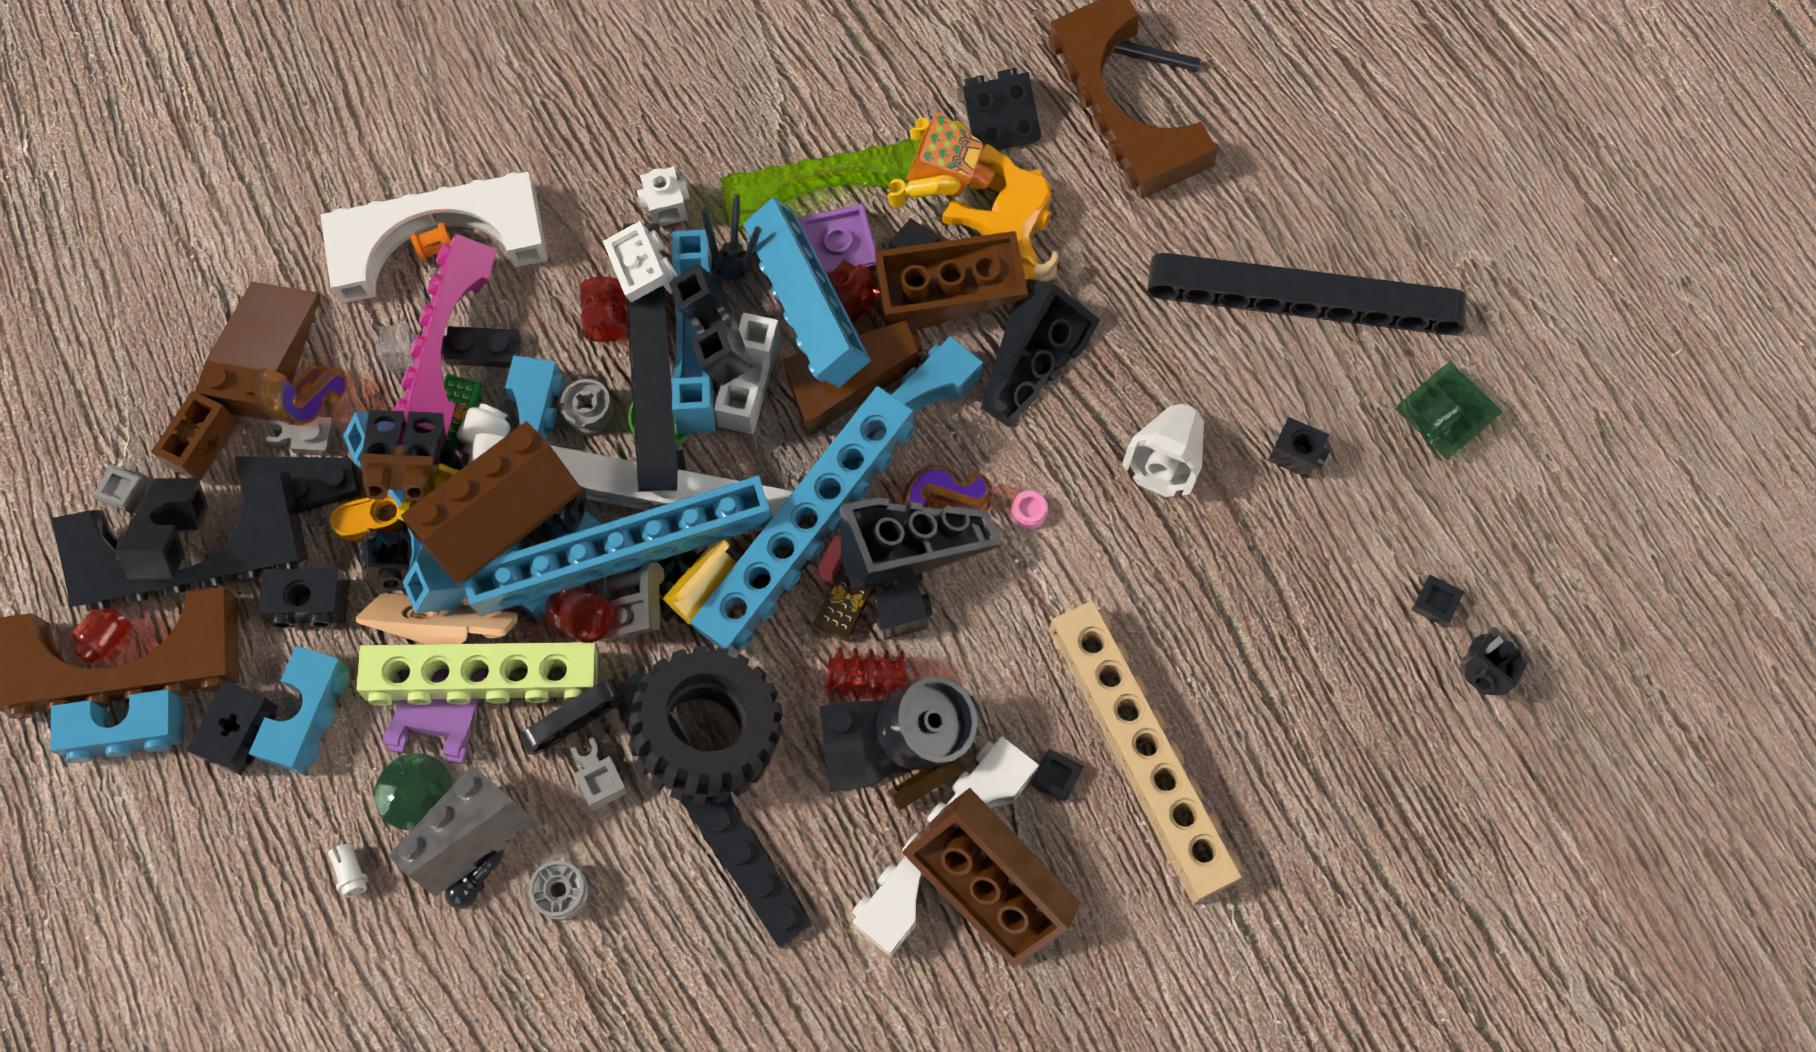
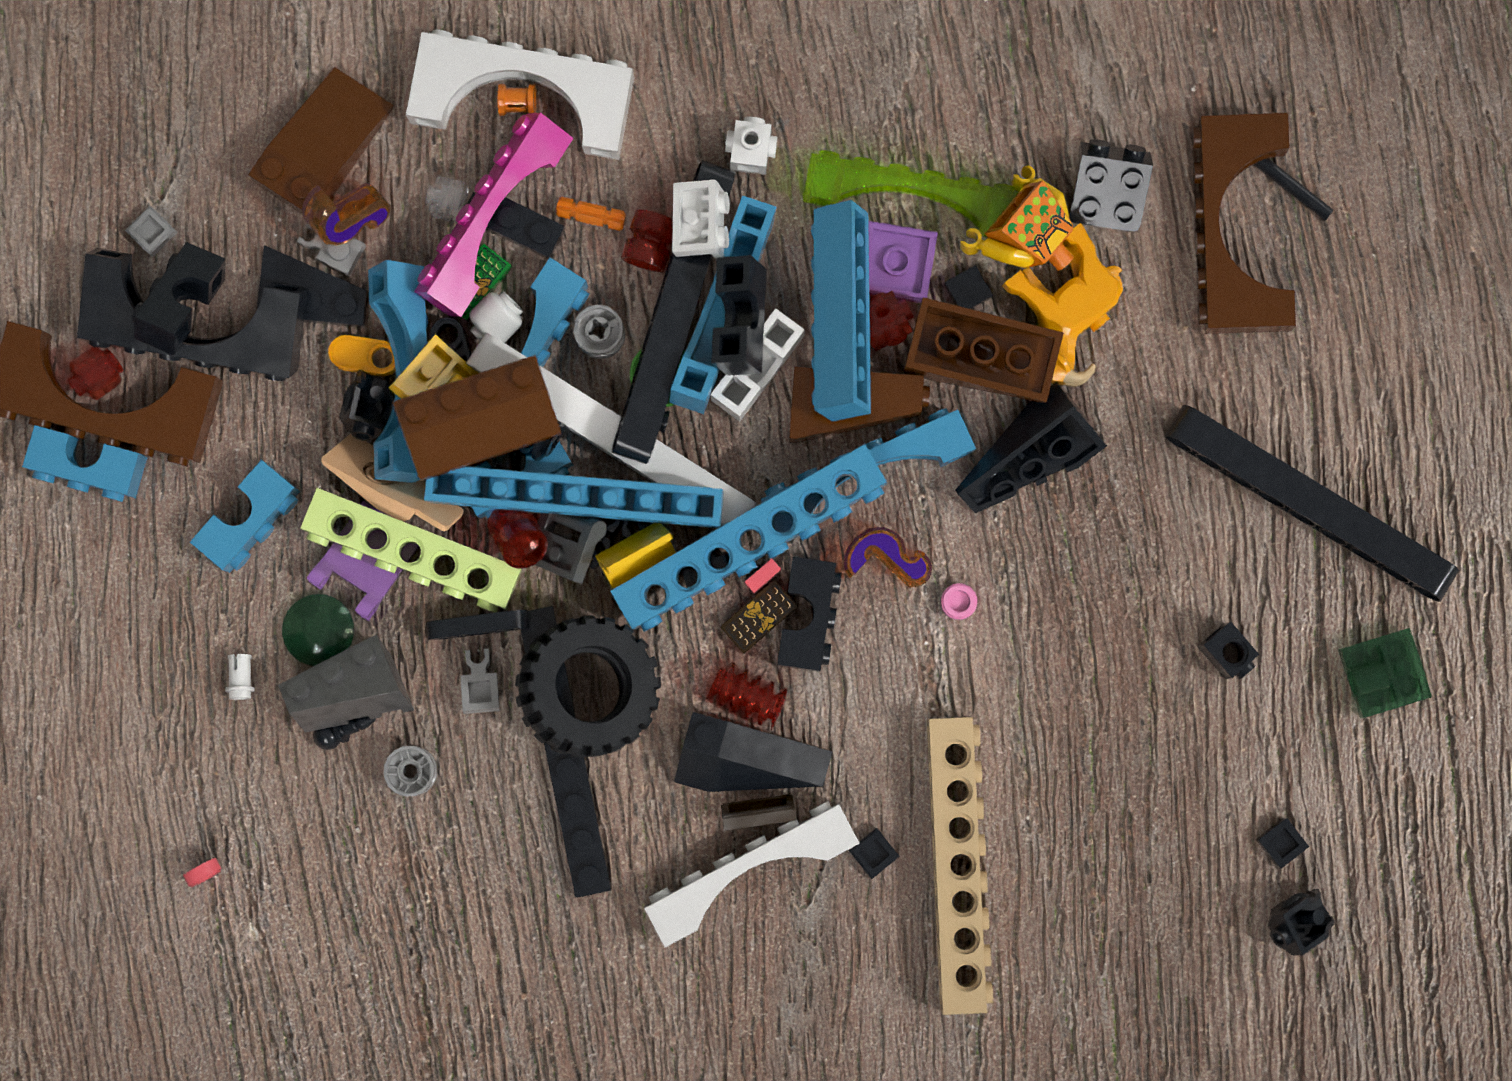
camera: 20 degrees right, 15 degrees up
(195, 436) = (234, 214): reddish brown brick -> none
(215, 737) = (164, 513): black brick -> none
(284, 588) = (263, 400): black brick -> none
(402, 456) = (410, 341): hips -> none
(539, 311) = (590, 213): none -> orange axle
(731, 258) = (790, 237): black plant -> none
(898, 541) = (824, 592): black wedge -> none
(927, 723) = (777, 769): wheel -> none
(992, 878) = (777, 922): reddish brown slope -> none
(1168, 451) = (1109, 604): white cone -> none

